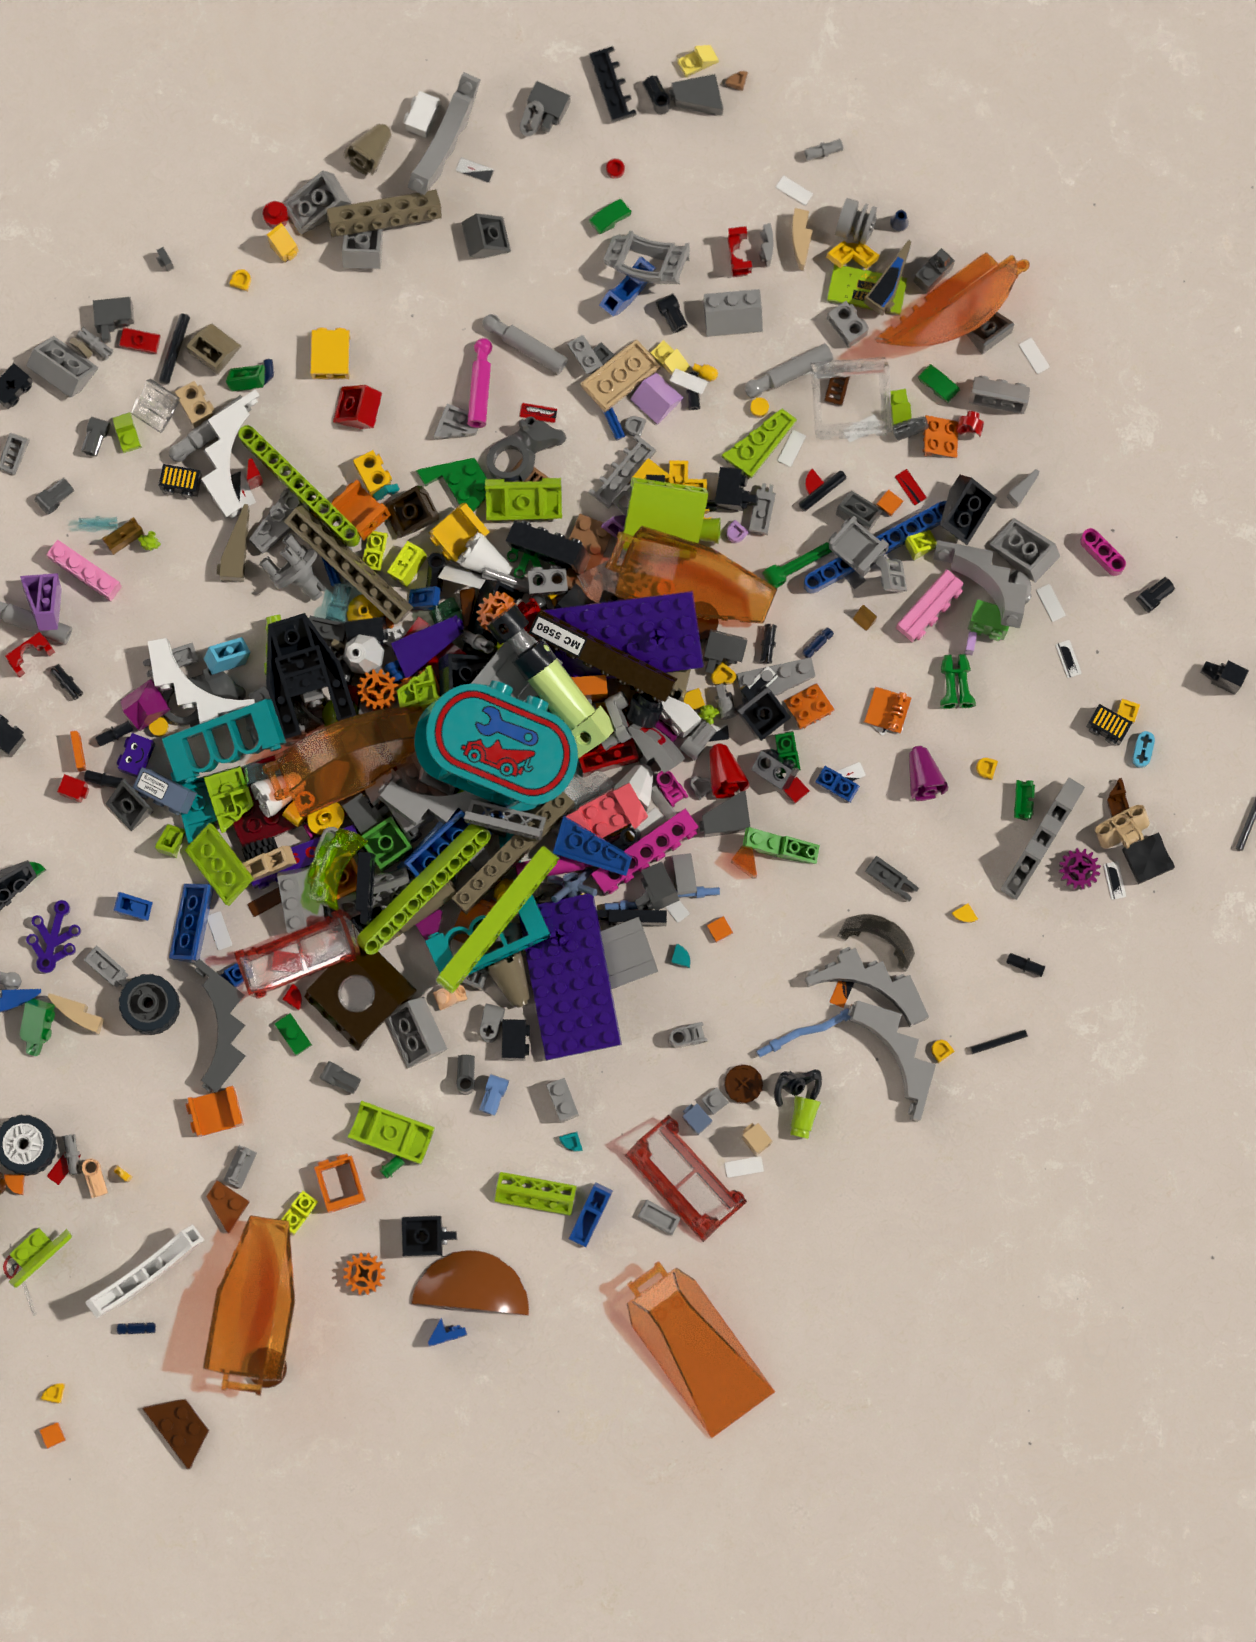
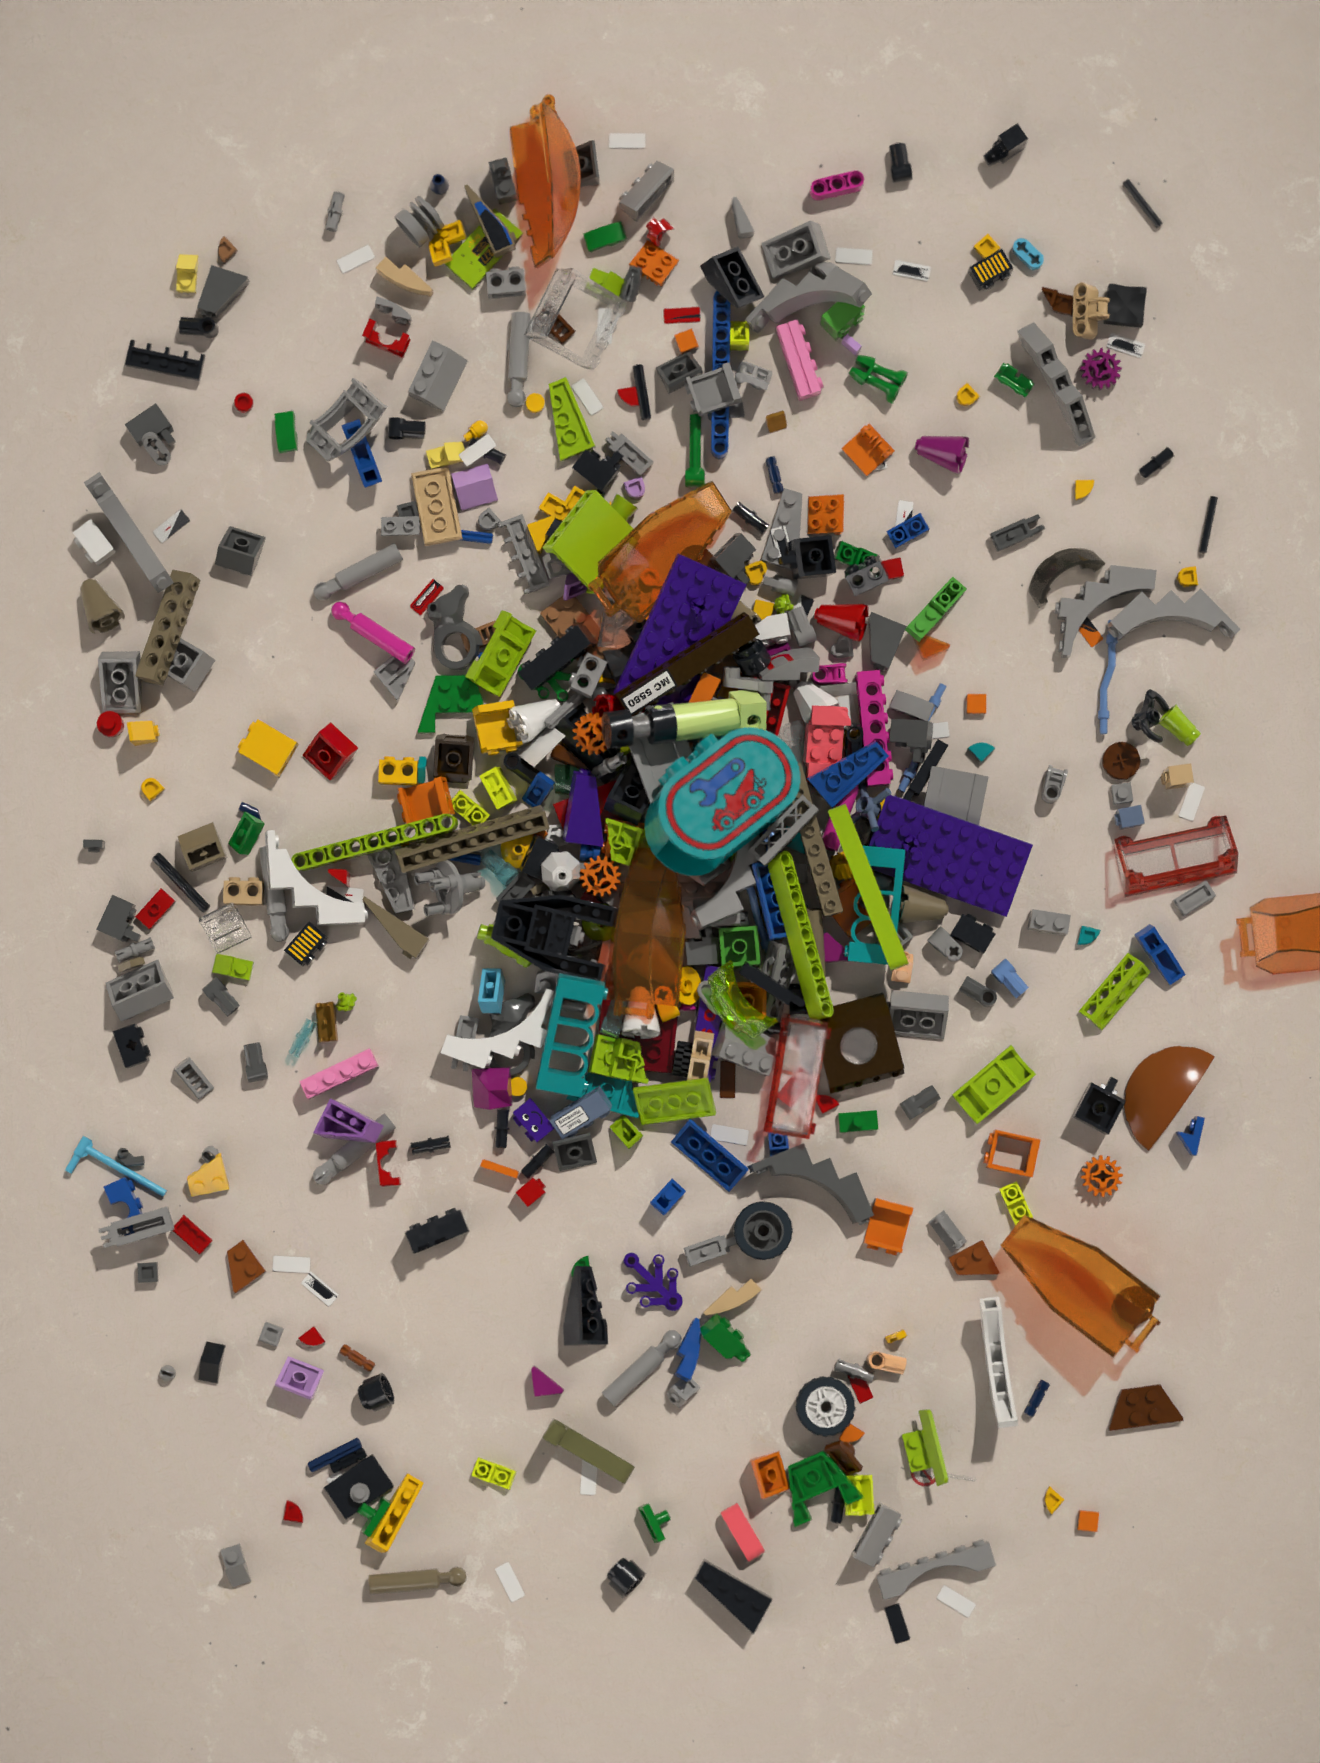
camera: 60 degrees left, 5 degrees up
(391, 1167) = (1022, 1101): green pin -> none

